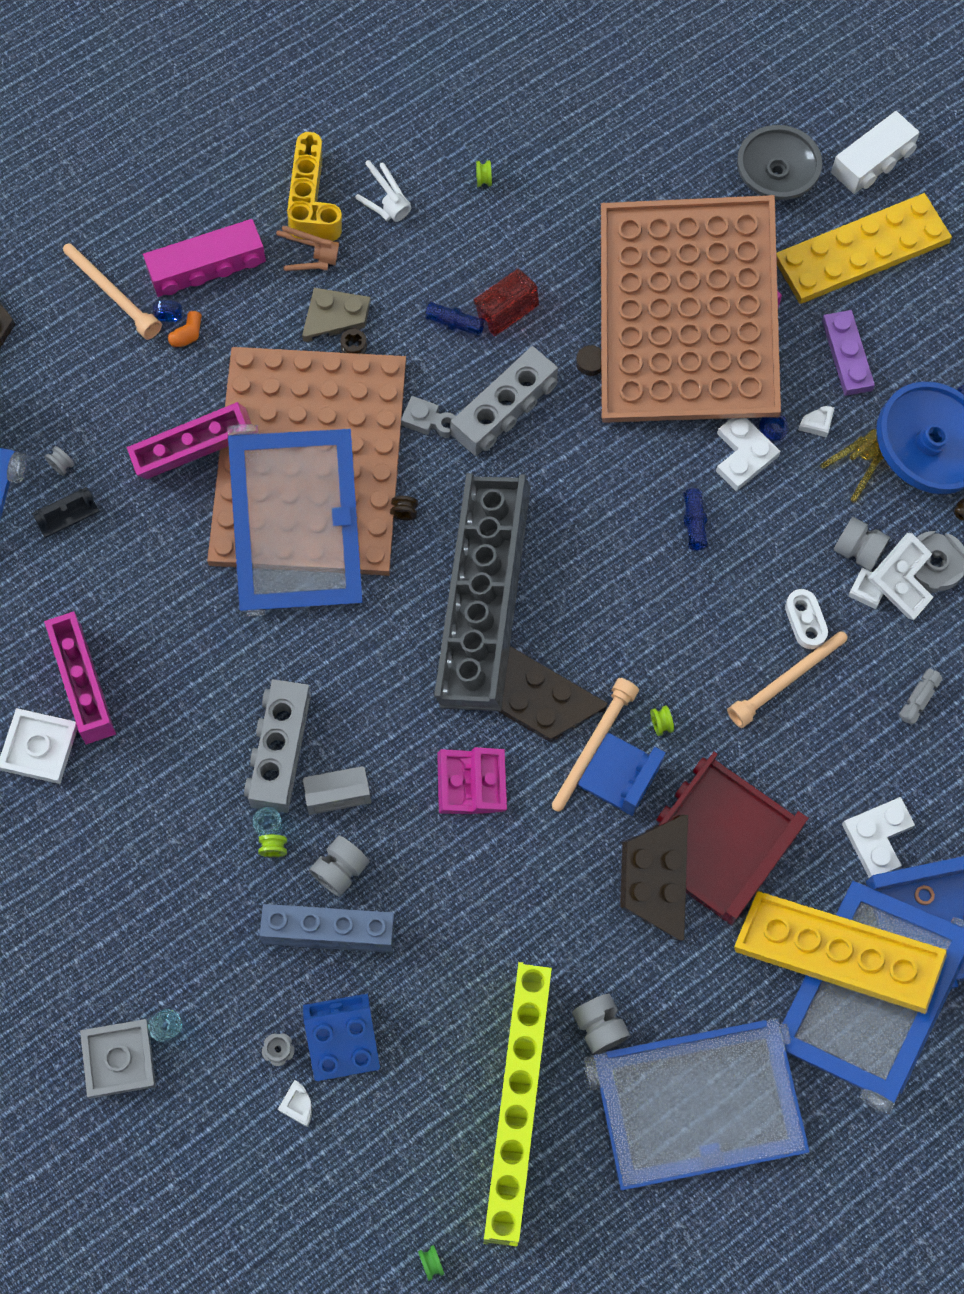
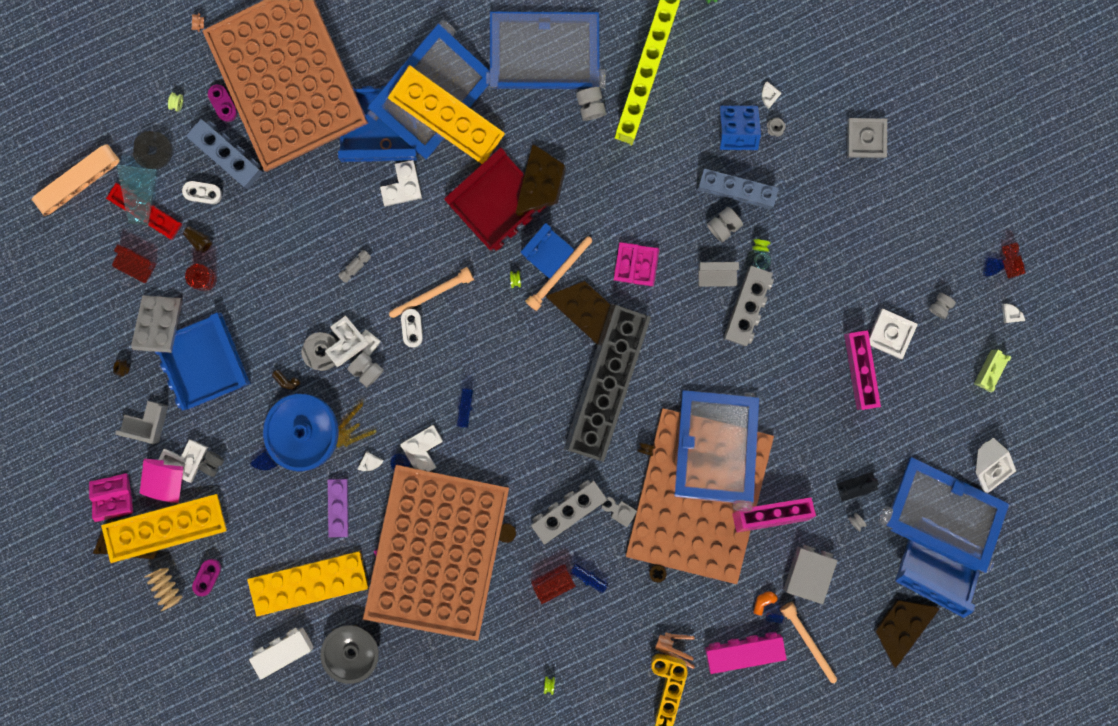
camera: 170 degrees left, 20 degrees up
(122, 376) = (810, 574): none -> light grey brick
(156, 1022) = (843, 152): clear light blue bush -> none
(334, 313) = (666, 598): dark tan wing -> none
(394, 203) = (612, 672): white plant -> none

